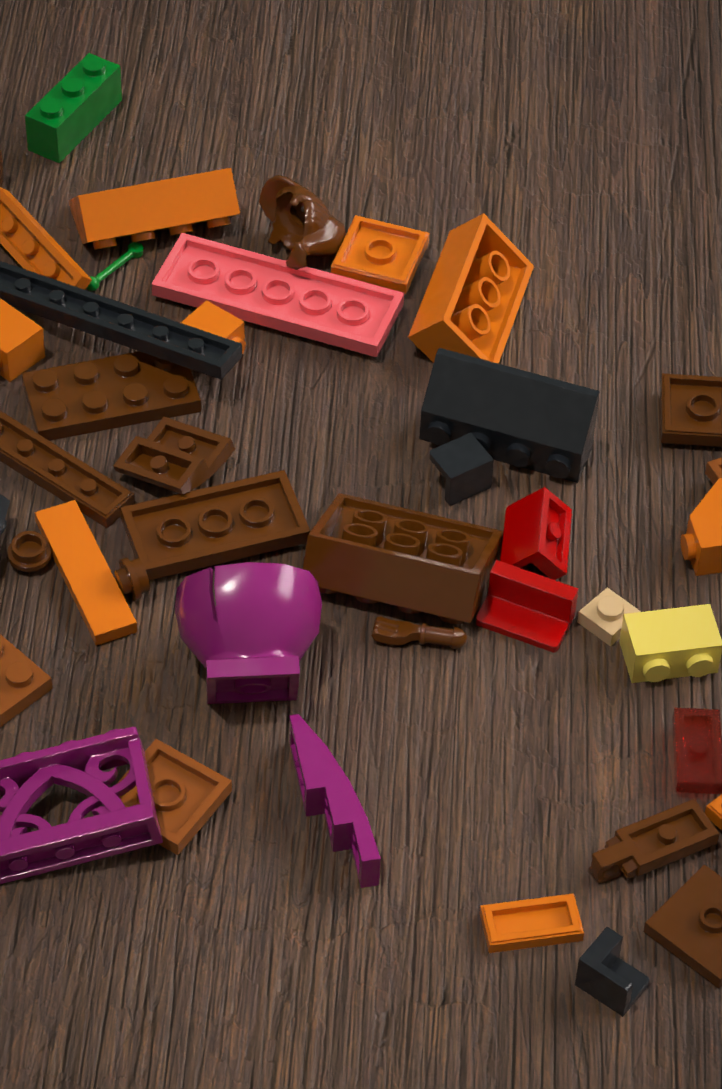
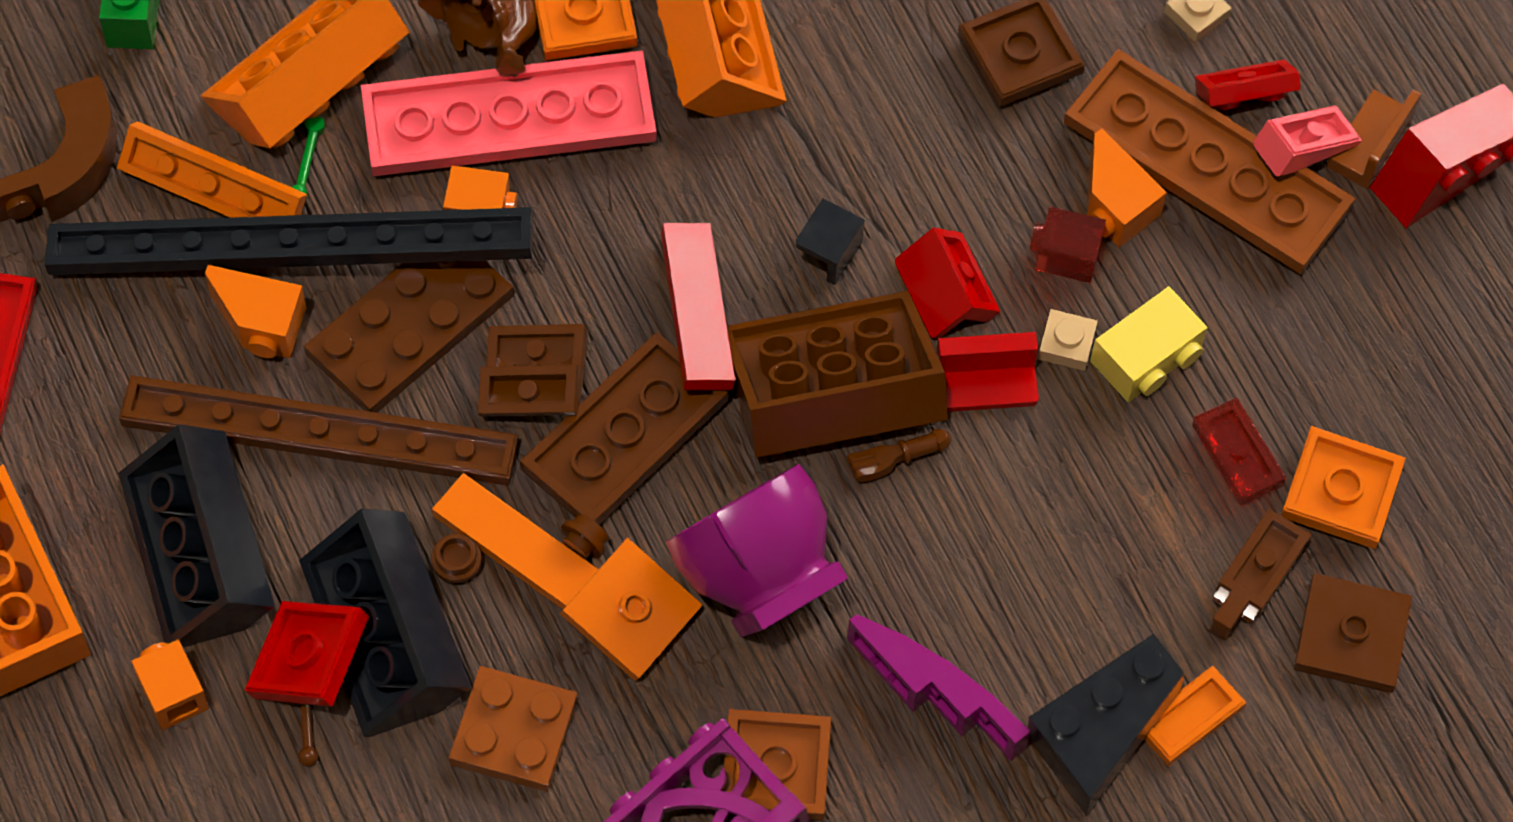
camera: 30 degrees left, 15 degrees up
(132, 640) = (631, 609): none -> orange plate
(326, 467) = (697, 306): none -> tile
(454, 882) = (1104, 719): none -> black wedge
(511, 413) = (847, 157): black slope -> none
(609, 977) = (1296, 735): black panel -> none
(651, 549) = (1067, 244): none -> clear red brick

